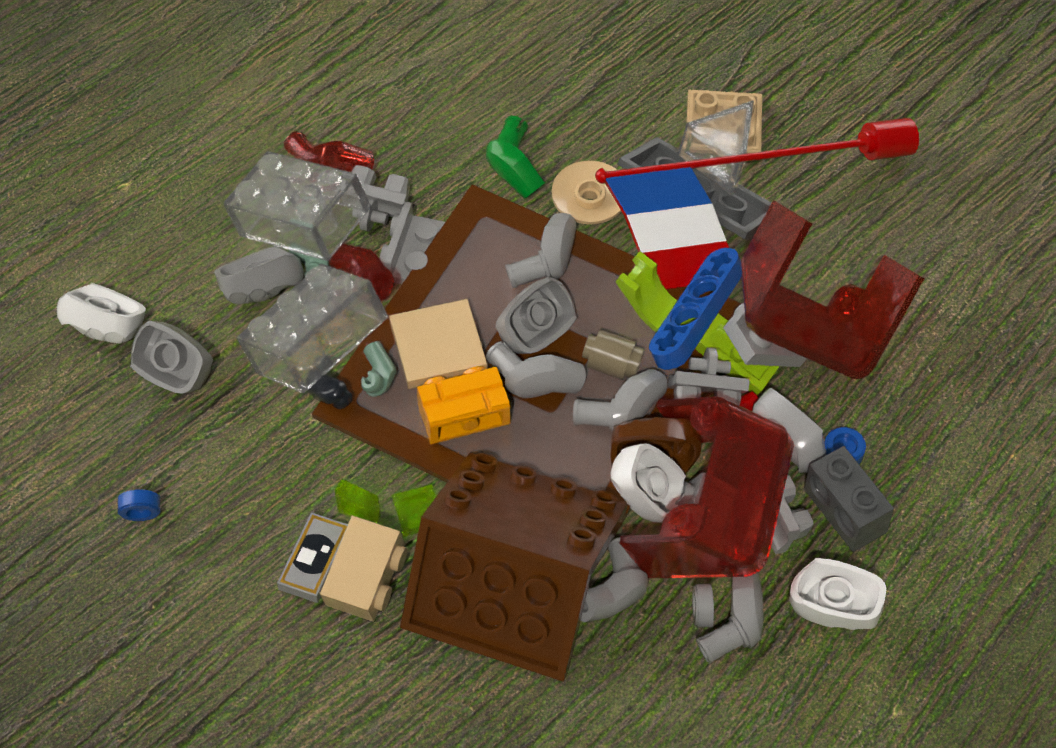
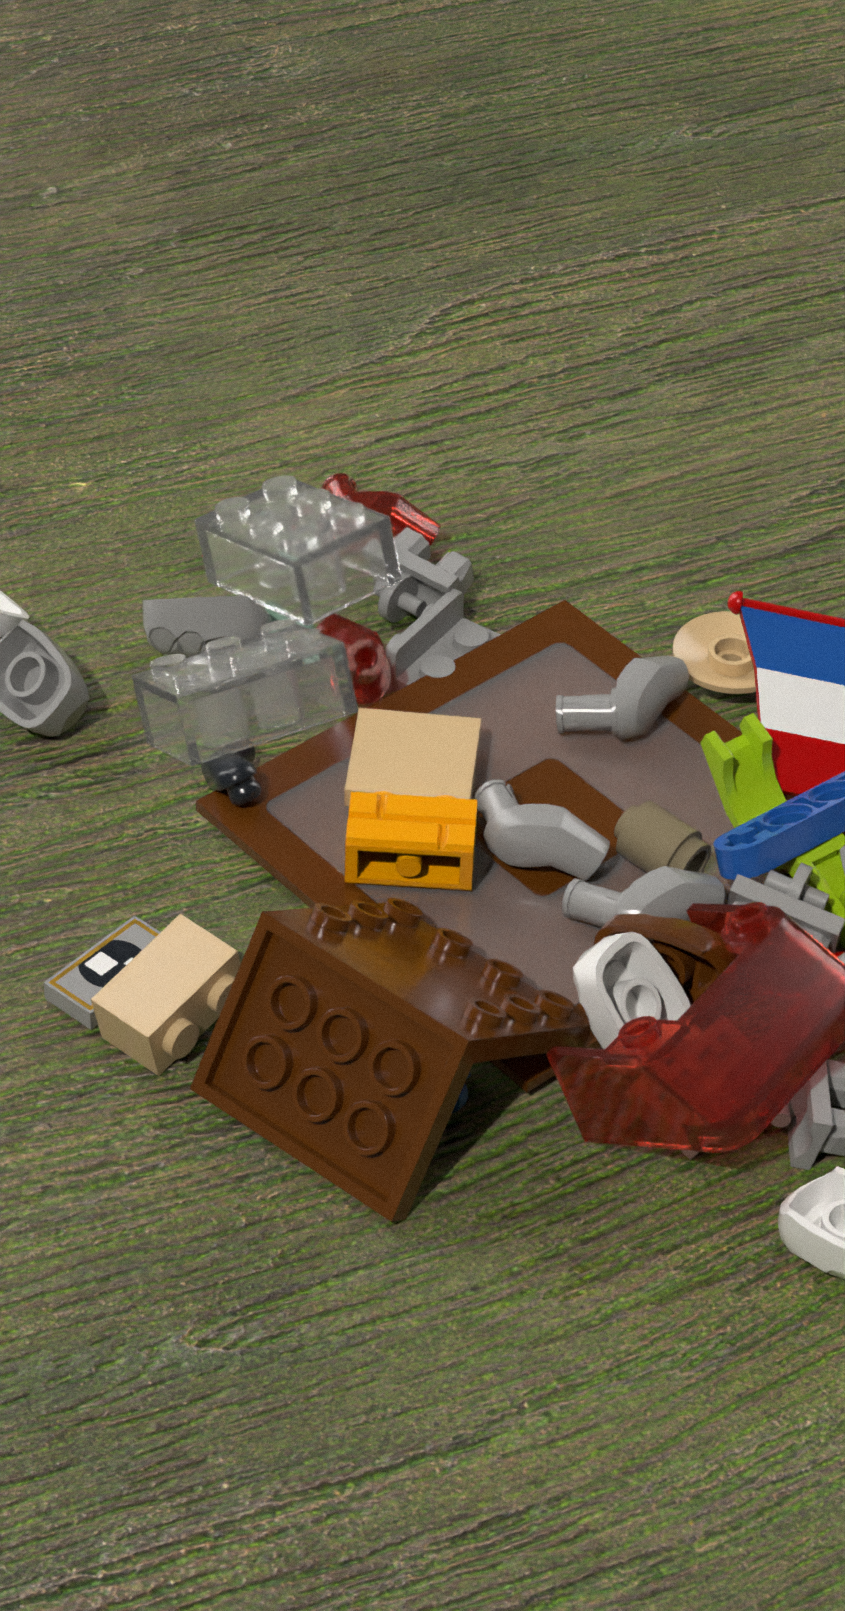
camera: 20 degrees right, 15 degrees down
(357, 501) = (204, 909): clear neon green tile -> none
(382, 371) = (317, 777): sand green arm -> none
(510, 161) = (634, 590): green arm -> none
(536, 316) = (570, 760): light grey piece -> none
(619, 591) = (519, 1135): light grey arm -> none
(703, 605) = (643, 1186): light grey tile -> none
(744, 624) = (696, 1225): light grey arm -> none

